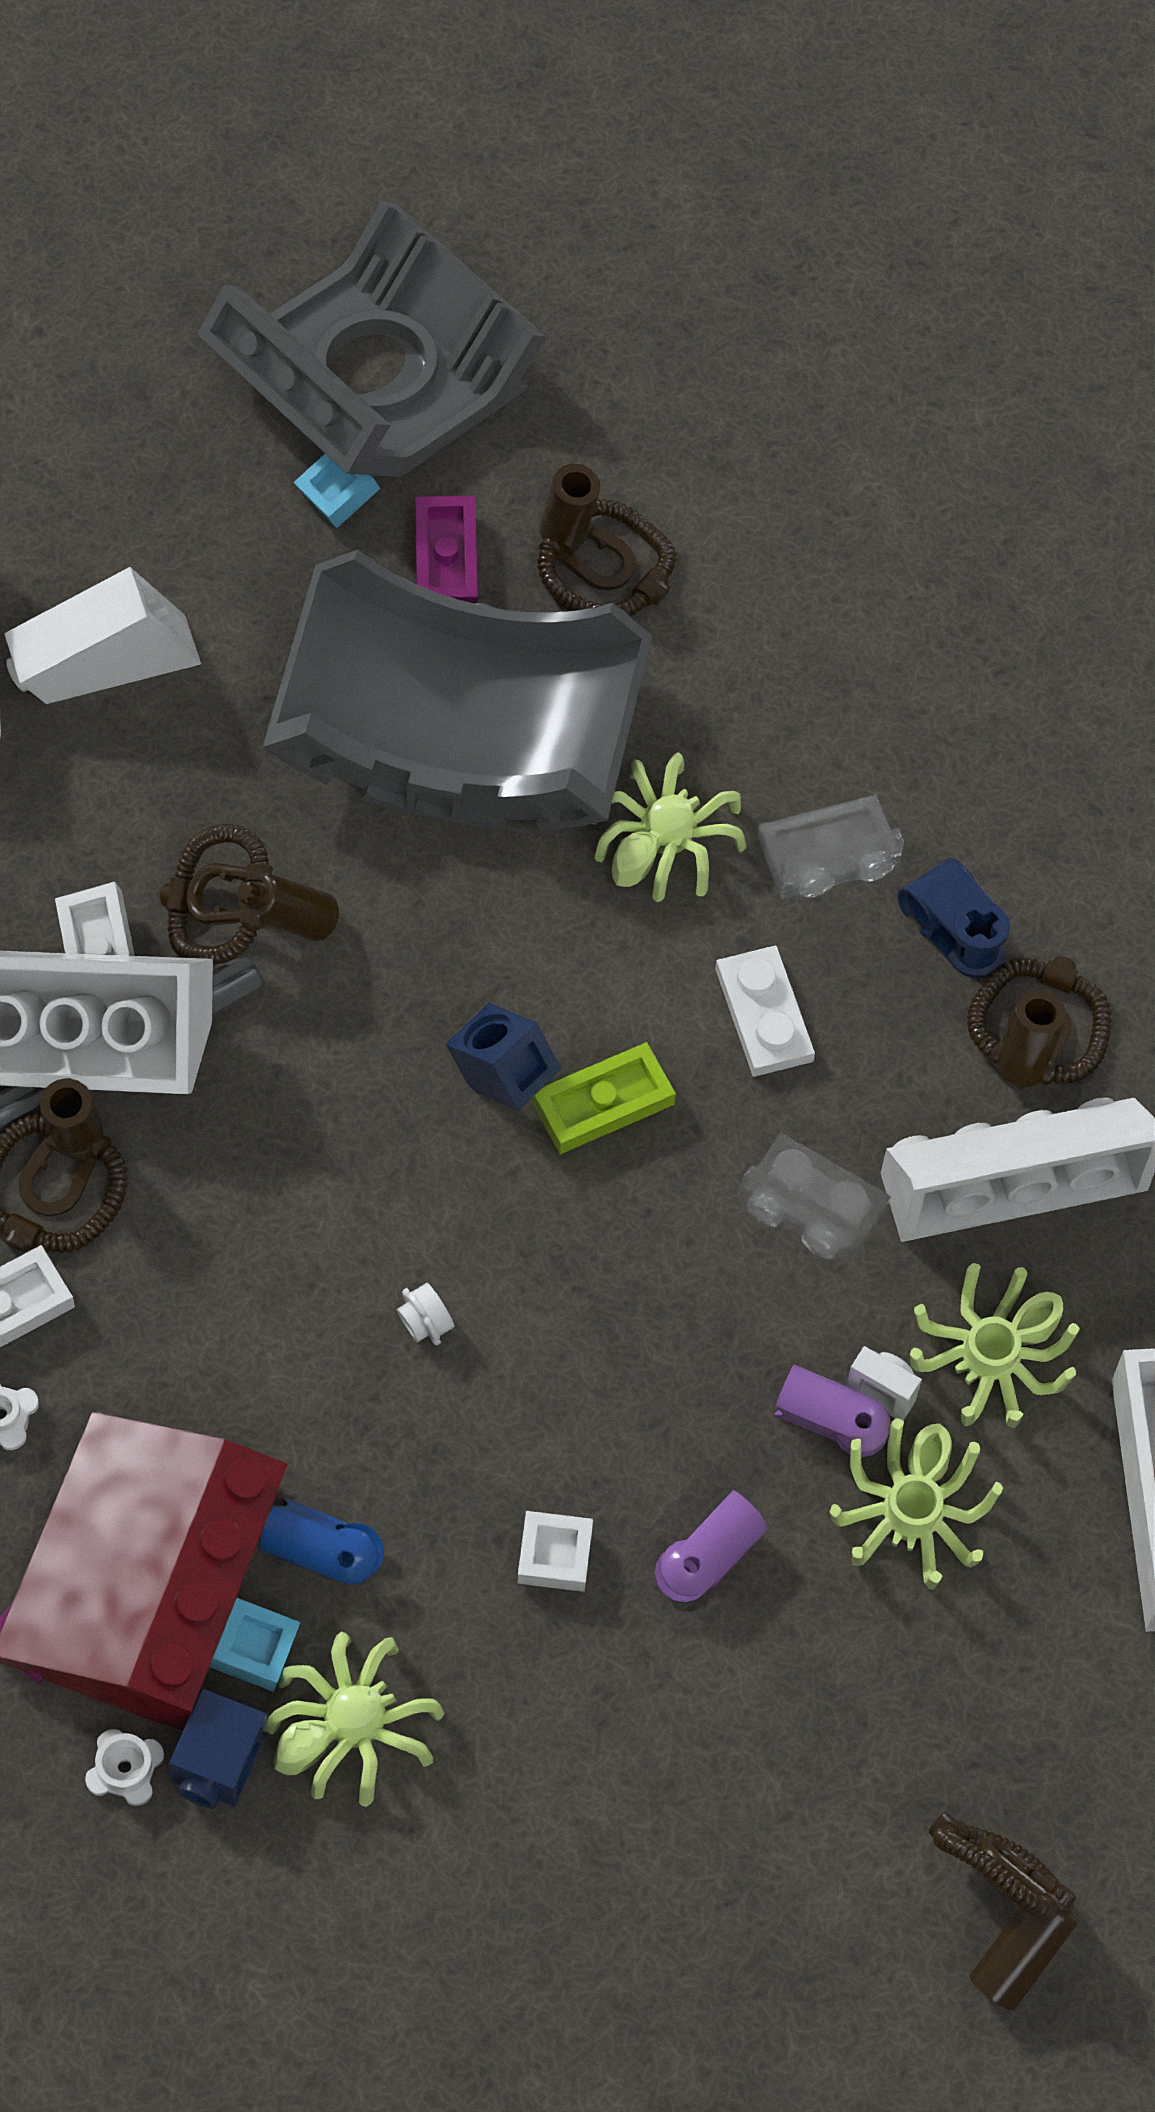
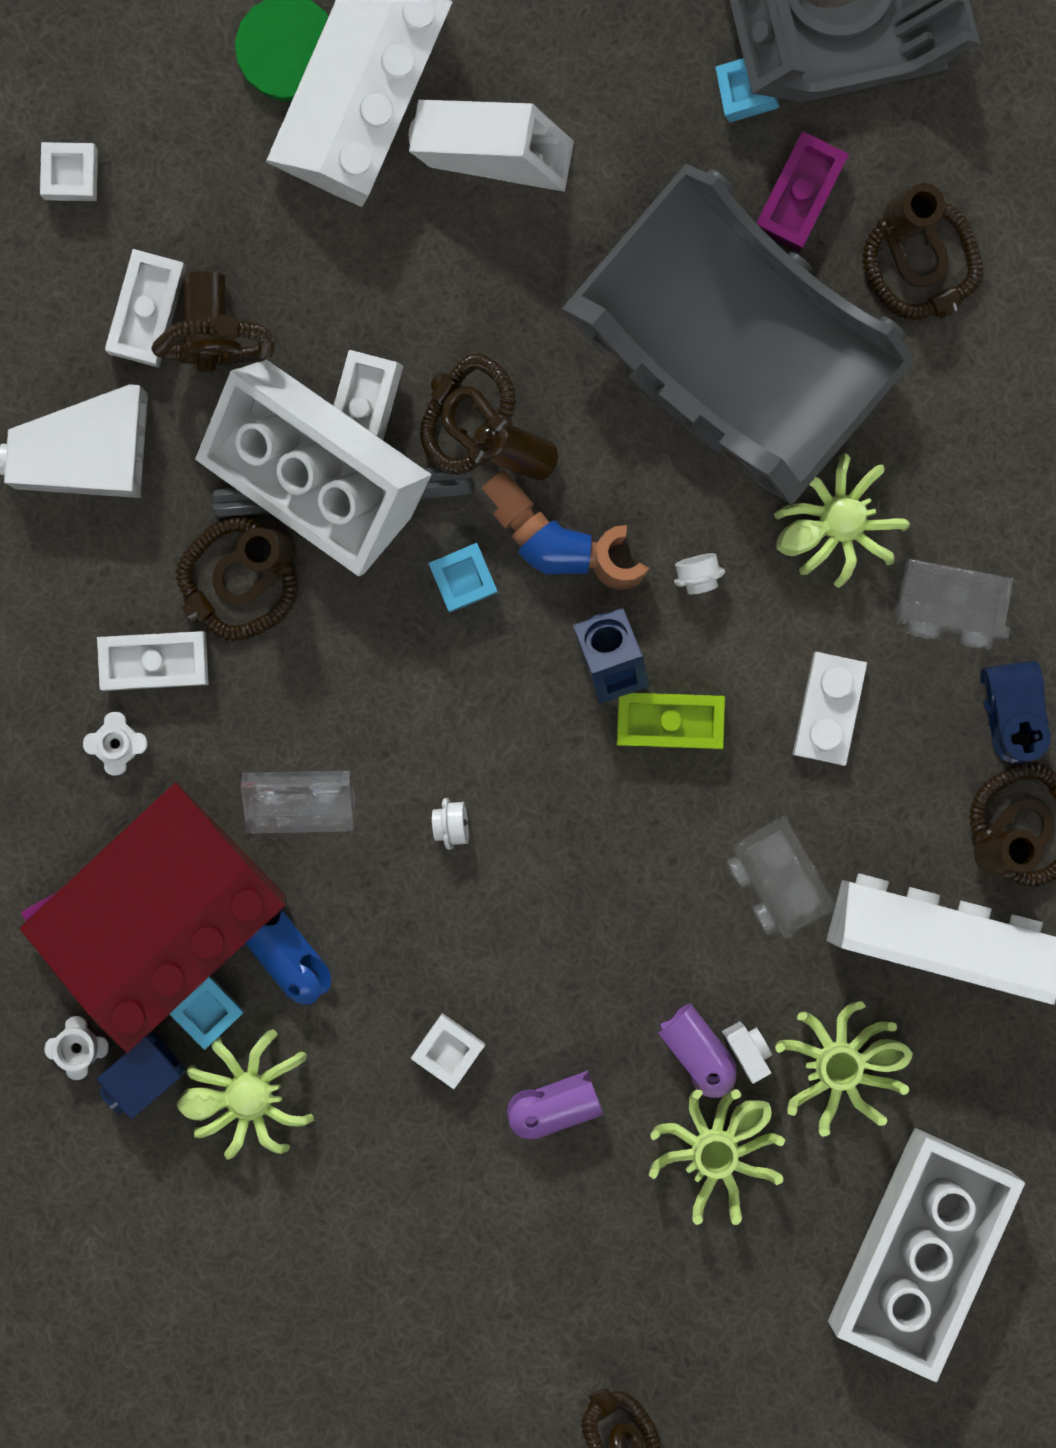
camera: 25 degrees right, 25 degrees up
(243, 1358) = (298, 801): none -> clear bracket
(299, 1064) = (463, 578): none -> medium azure plate
(392, 986) = (554, 548): none -> piece
(549, 944) = (699, 573): none -> white plate

